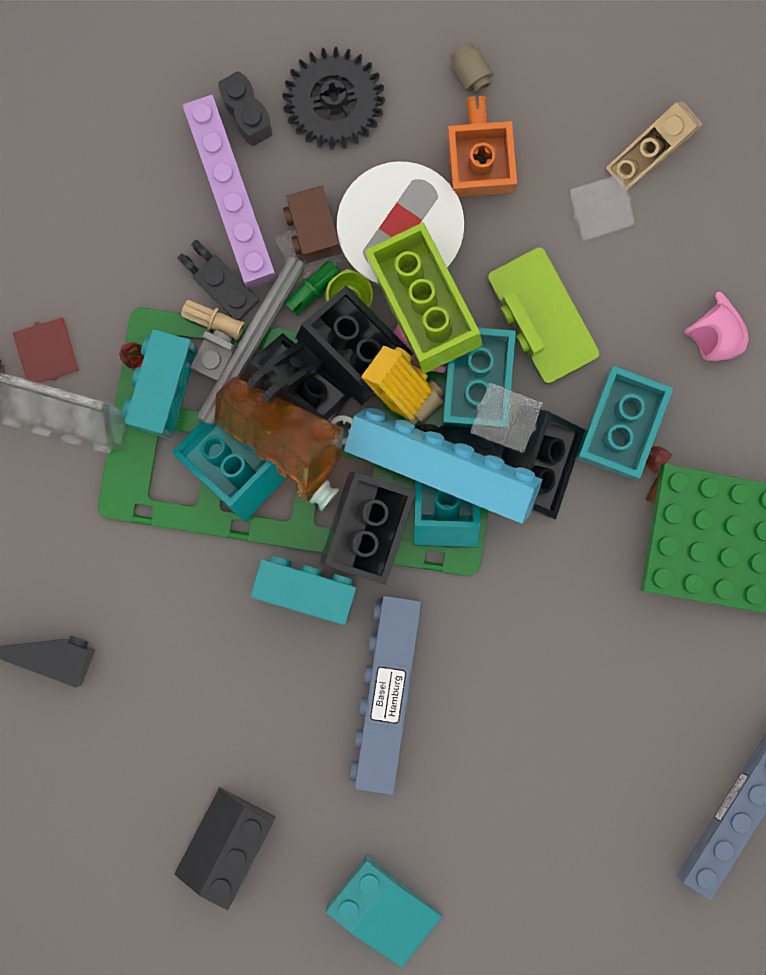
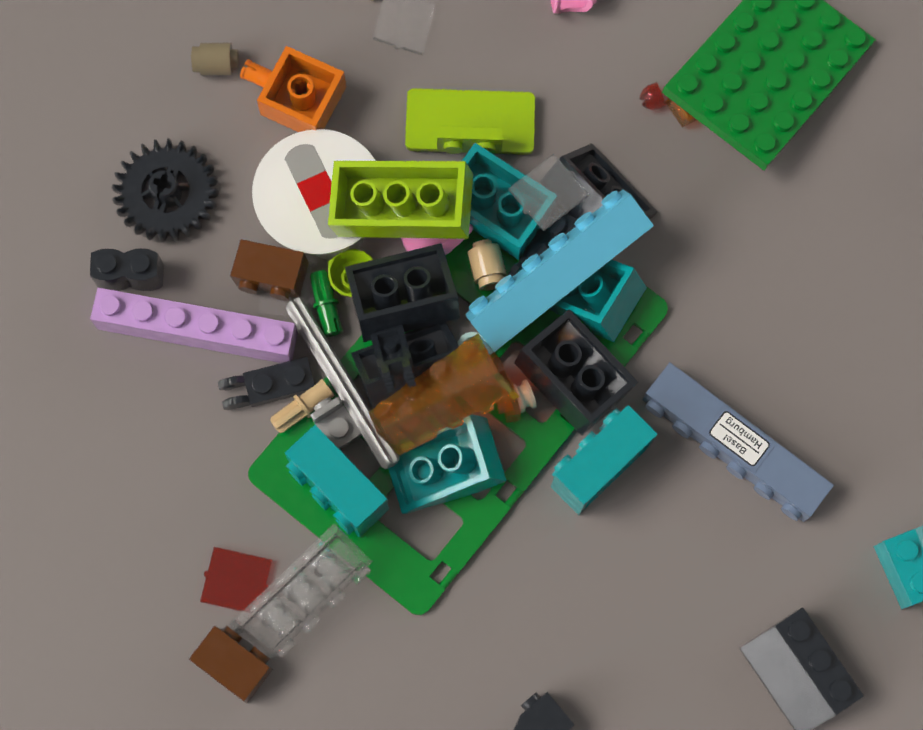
camera: 65 degrees left, 10 degrees down
(133, 359) = (293, 499): clear red hinge -> none
(397, 381) = (461, 266): yellow brick -> none
(624, 423) = (607, 104): teal brick -> none

